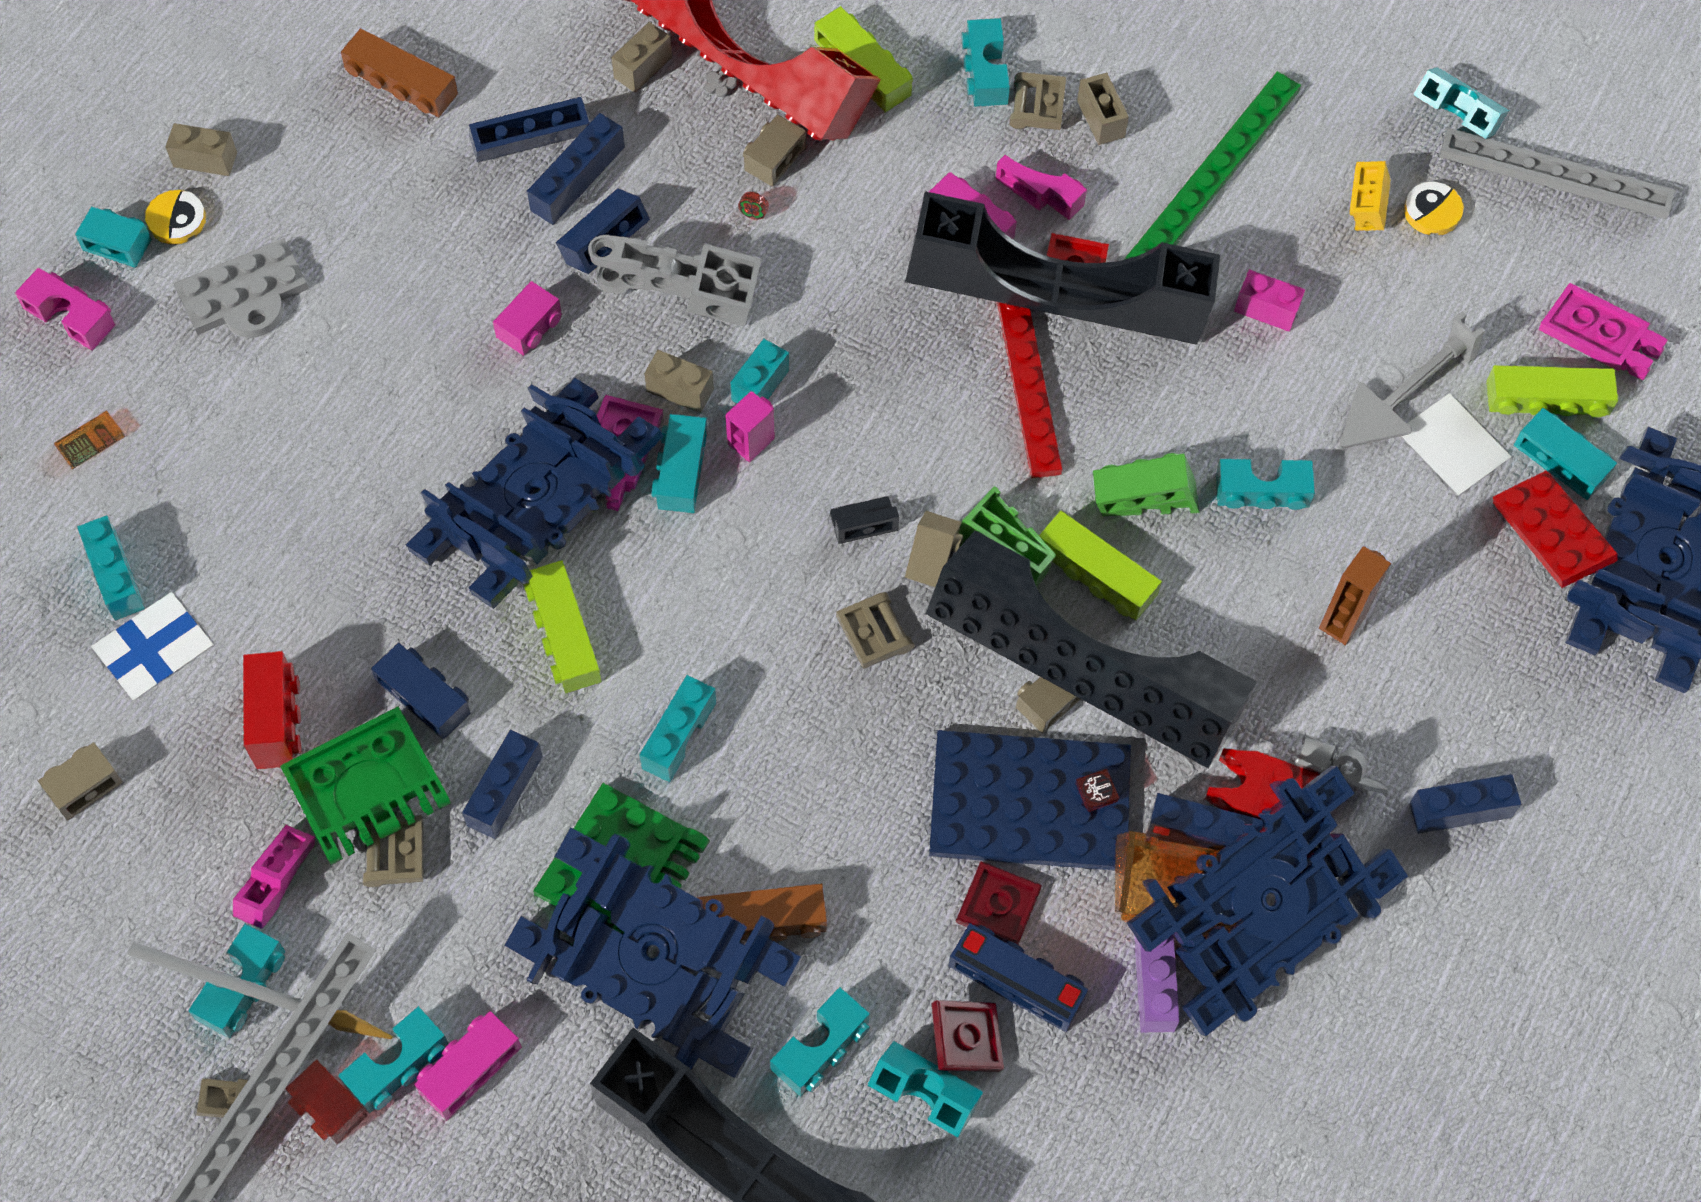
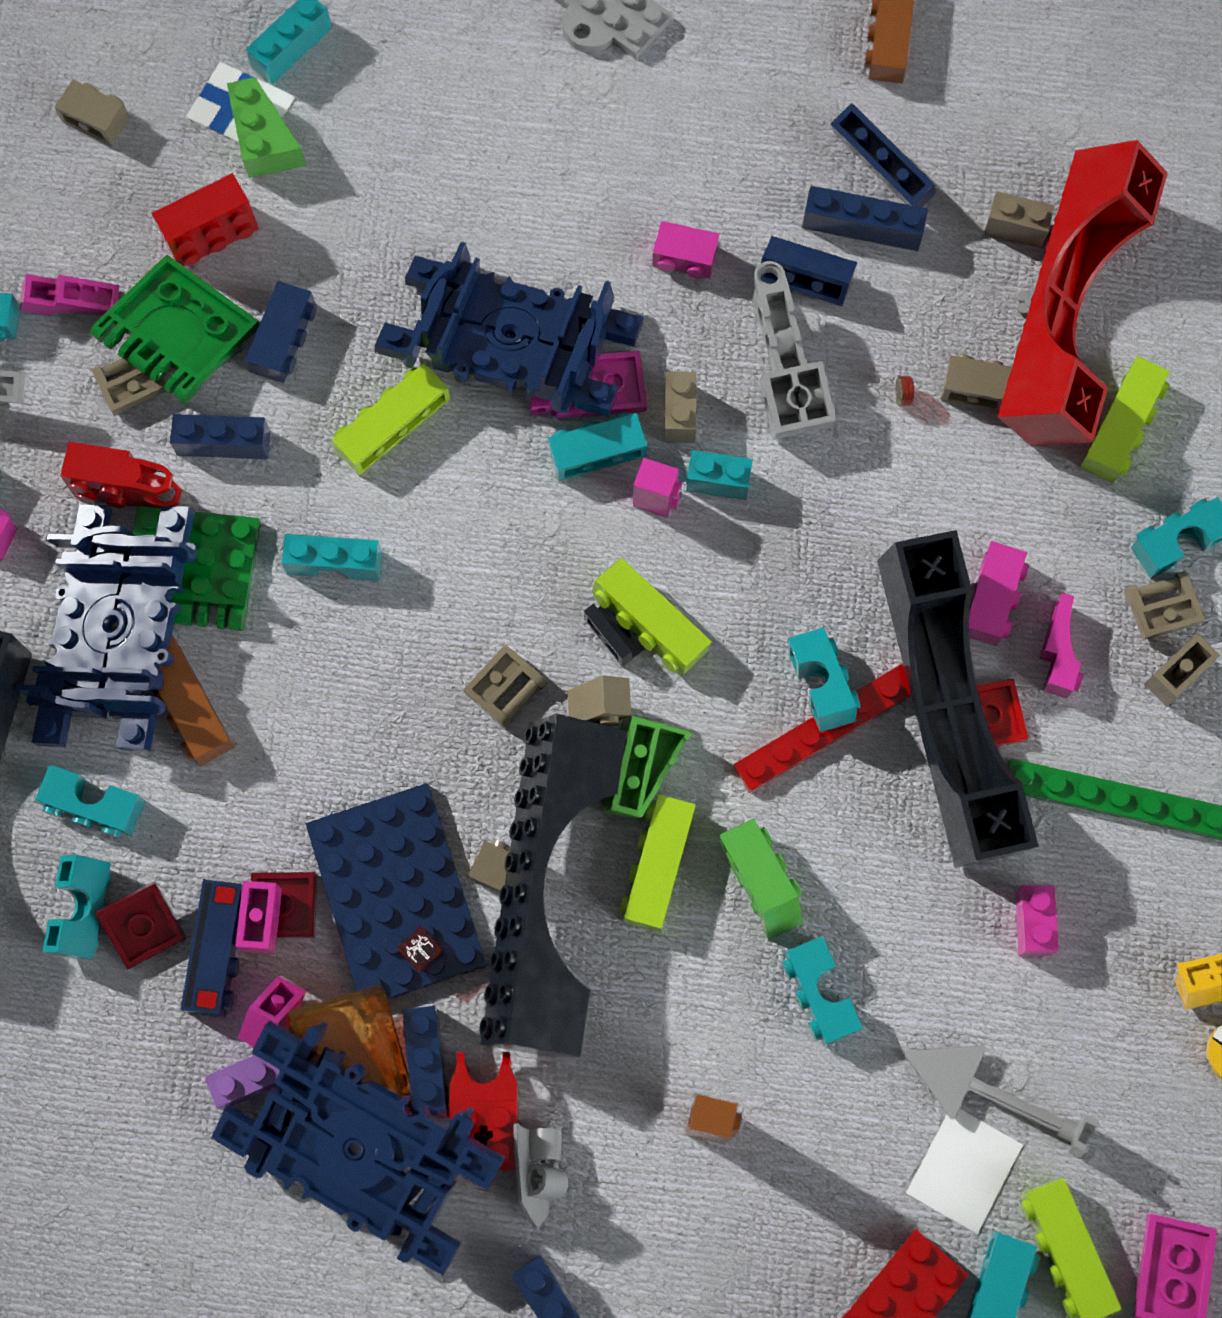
camera: 70 degrees right, 10 degrees up
(196, 627) = (261, 132): none -> bright green wedge
(500, 891) = (115, 477): none -> red brick
(867, 482) = (650, 617): none -> lime brick
(967, 365) = (816, 656): none -> teal arch
(1011, 915) = (258, 917): none -> dark pink brick
(1108, 938) = (271, 1006): none -> dark pink brick

